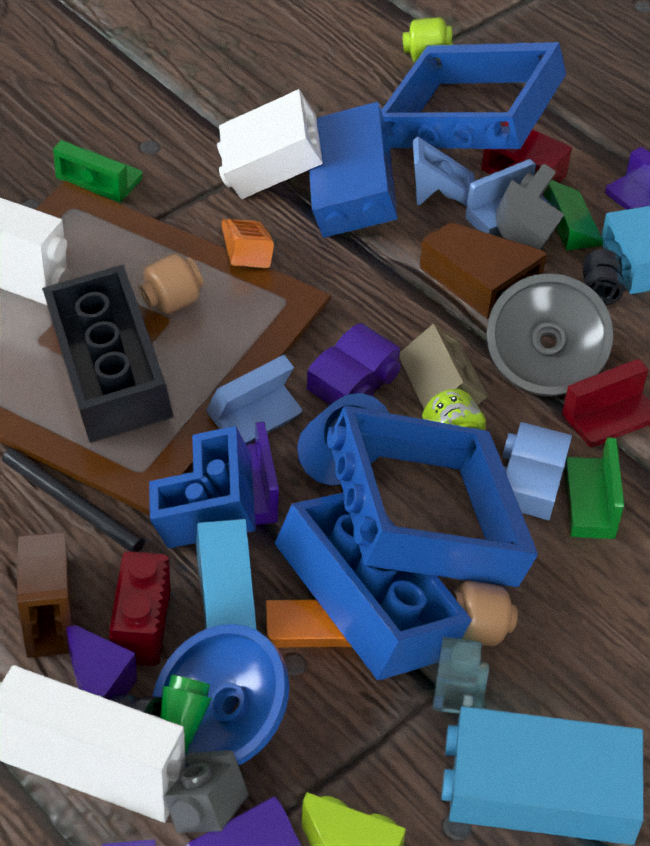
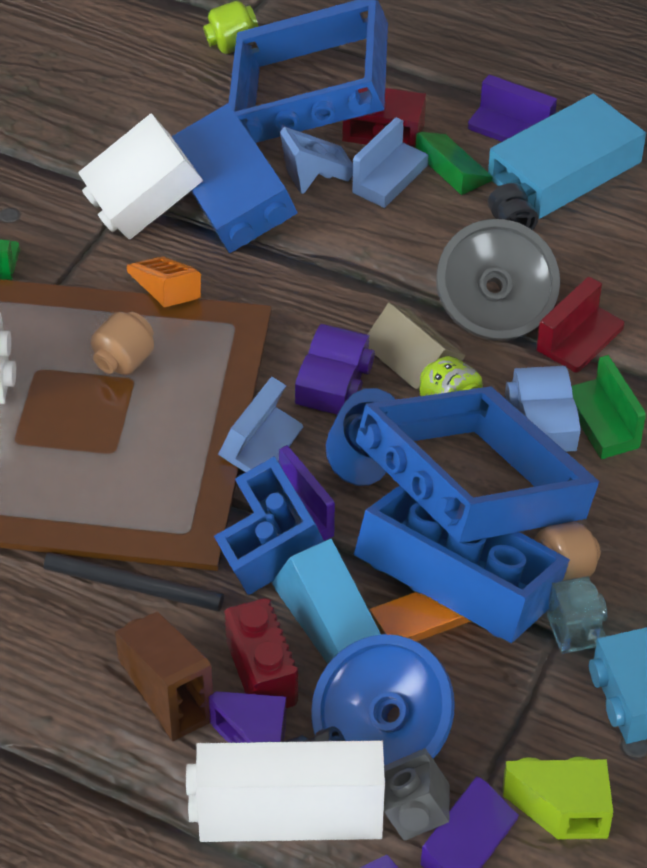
camera: 20 degrees left, 0 degrees up
(108, 353) = (101, 429): black brick -> none
(185, 705) = (358, 719): green cone -> none
(477, 264) = (396, 235): reddish brown slope -> none
(524, 215) = (416, 175): dark grey brick -> none

